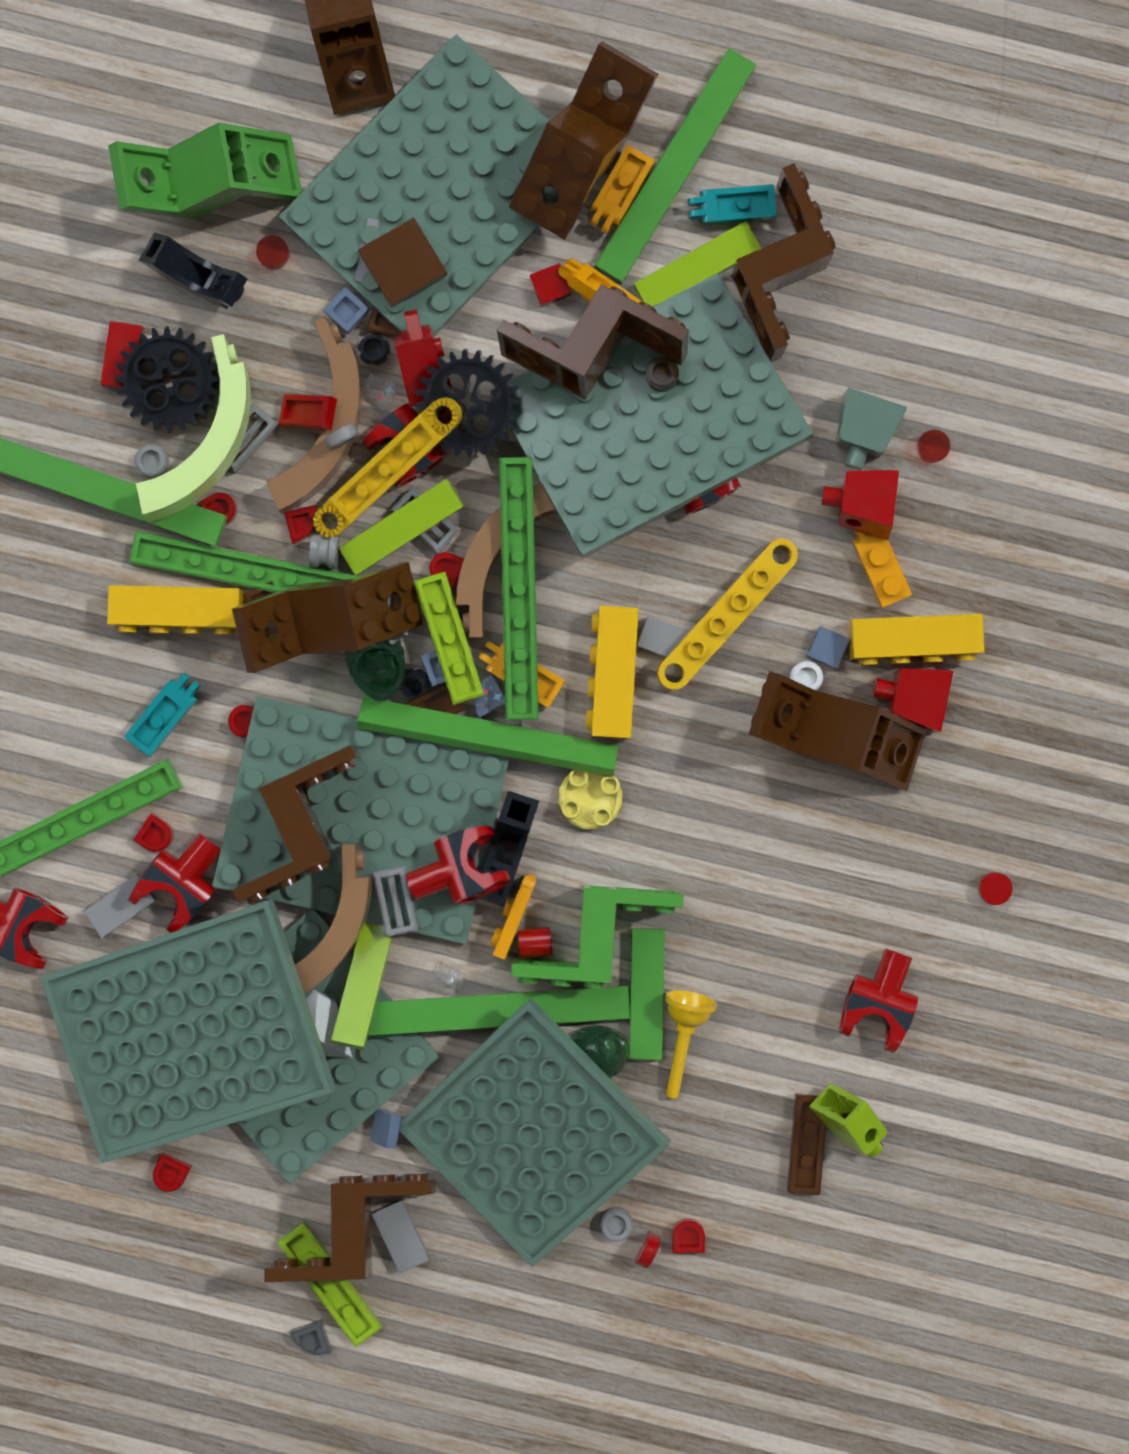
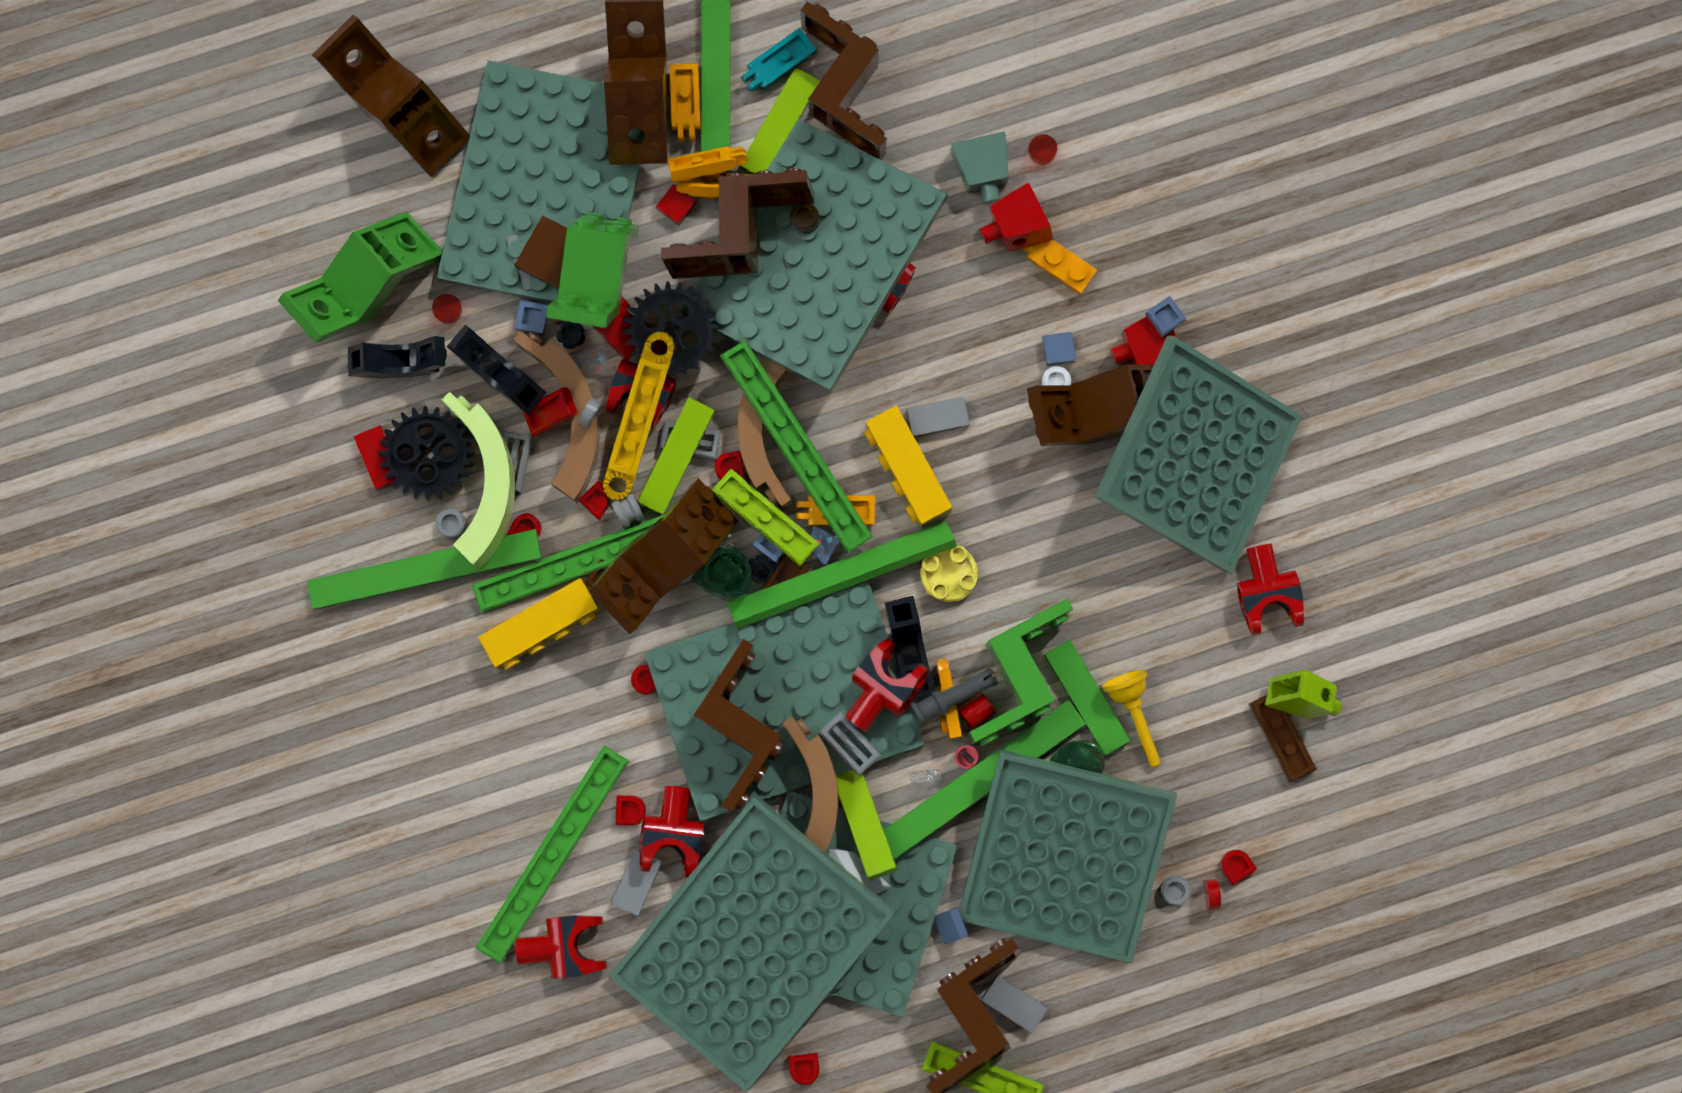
camera: 30 degrees left, 5 degrees down
(162, 715) = (580, 713): teal hinge -> none
(280, 340) = (496, 370): none -> black arch
(424, 301) = (593, 270): none -> bright green bracket
(493, 983) = (962, 761): none -> coral hinge
(502, 916) = (940, 702): none -> dark grey pin
(602, 262) = (707, 162): none -> light orange hinge
(727, 614) = (966, 370): yellow plate -> none
(894, 834) = (1198, 455): none -> sand green plate
(916, 637) = (1121, 299): yellow brick -> none
(948, 681) = (1165, 316): none -> sand blue tile
(995, 888) = (1301, 452): red tile -> none

